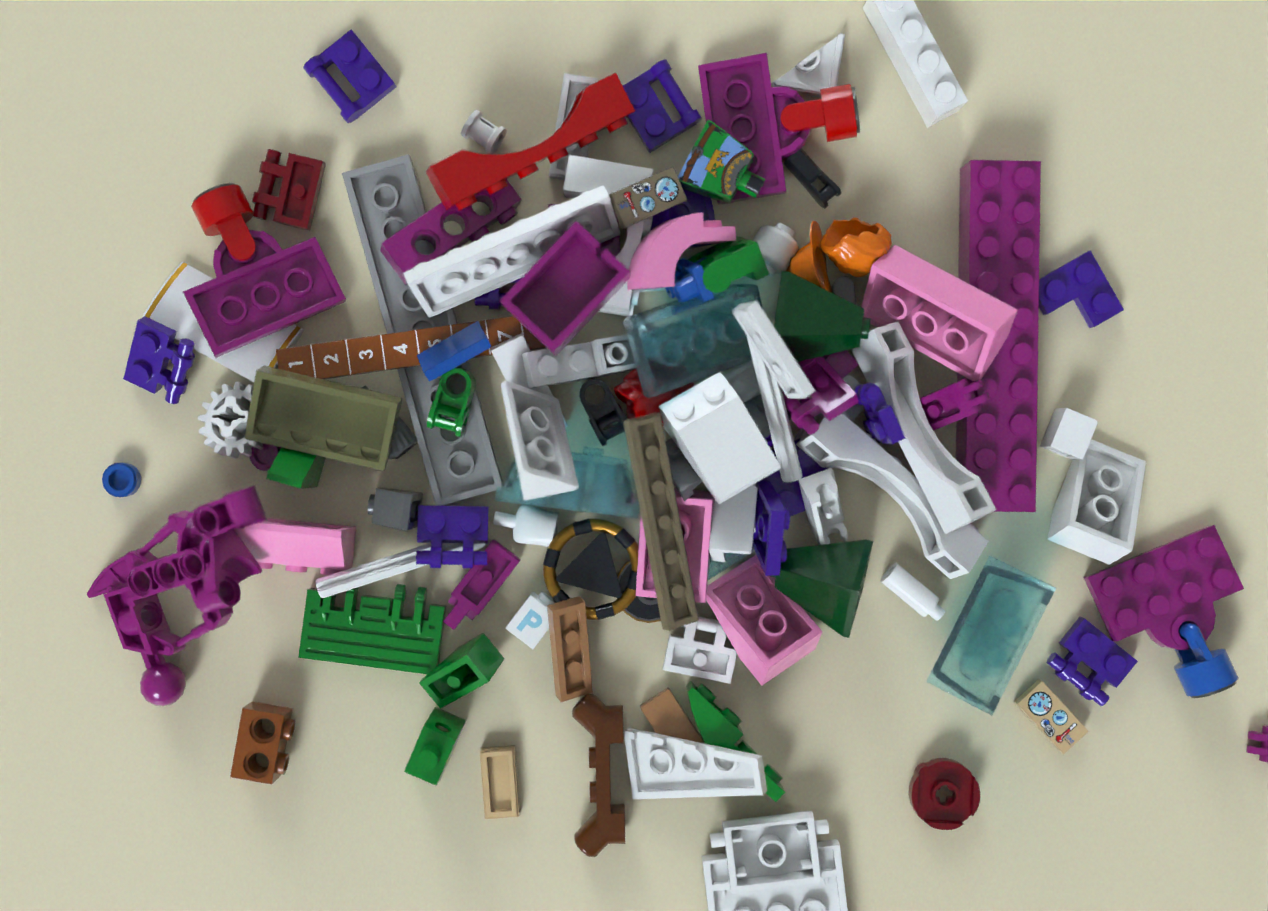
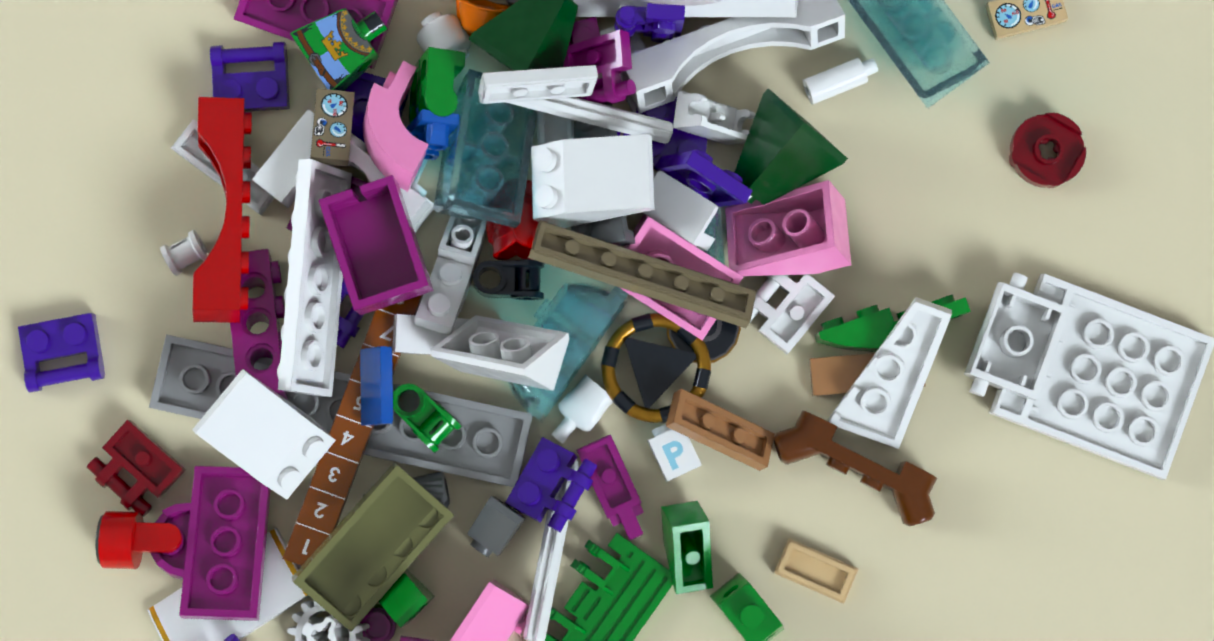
camera: 60 degrees left, 5 degrees down
(362, 281) = (264, 434): none -> white slope

